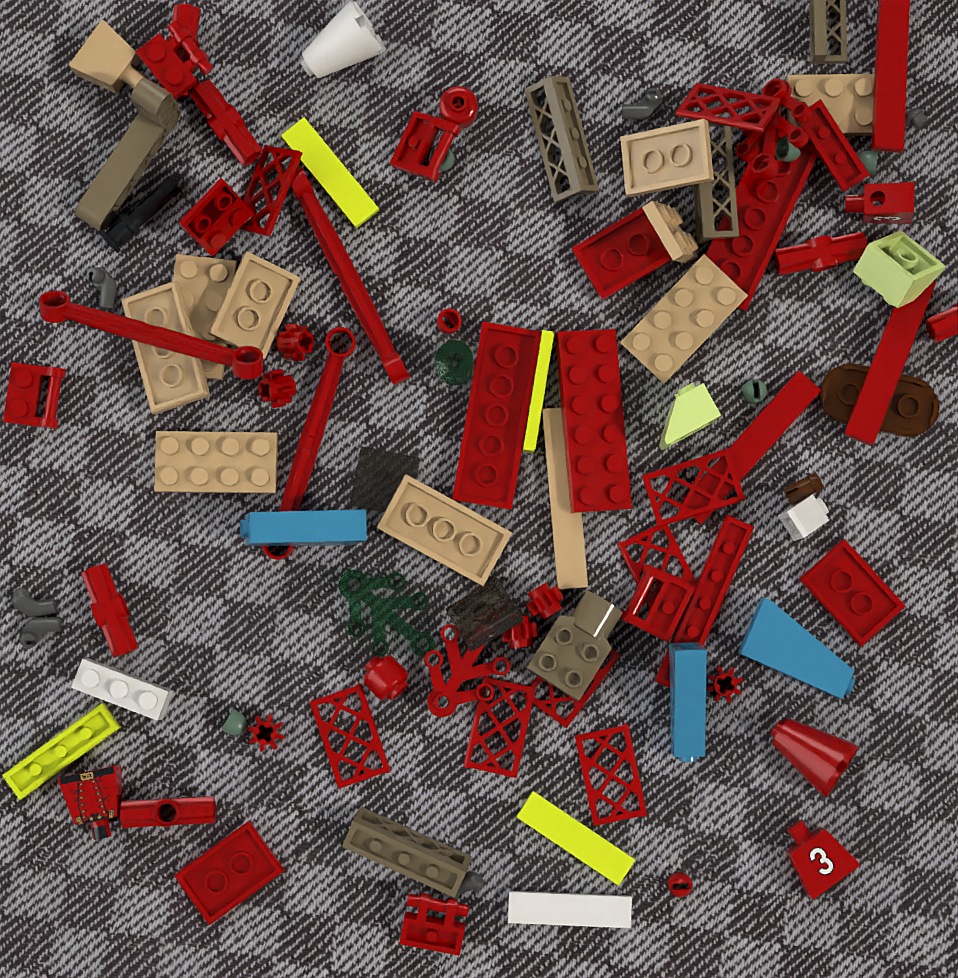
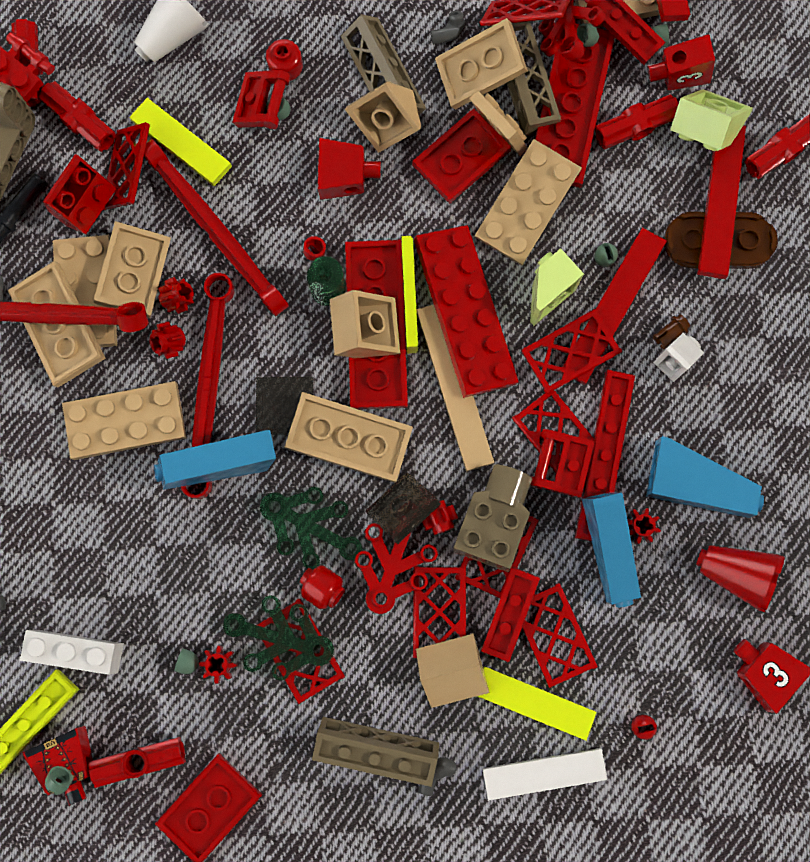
camera: 10 degrees left, 5 degrees down
(94, 808) = (61, 773): none -> sand green hinge
(110, 610) = (47, 579): red piece -> none
(335, 722) = (283, 640): none -> clear green plant
(434, 932) = (417, 826): red plate -> none
(484, 417) = (364, 325): none -> tan slope
(497, 241) = (343, 169): none -> red torso
(499, 788) = (451, 671): none -> tan slope
(544, 601) = (456, 483): red gear -> none
(554, 195) = (386, 115): none -> tan slope
(570, 745) = (510, 614): none -> red plate
(852, 592) = (739, 417): red tile -> none

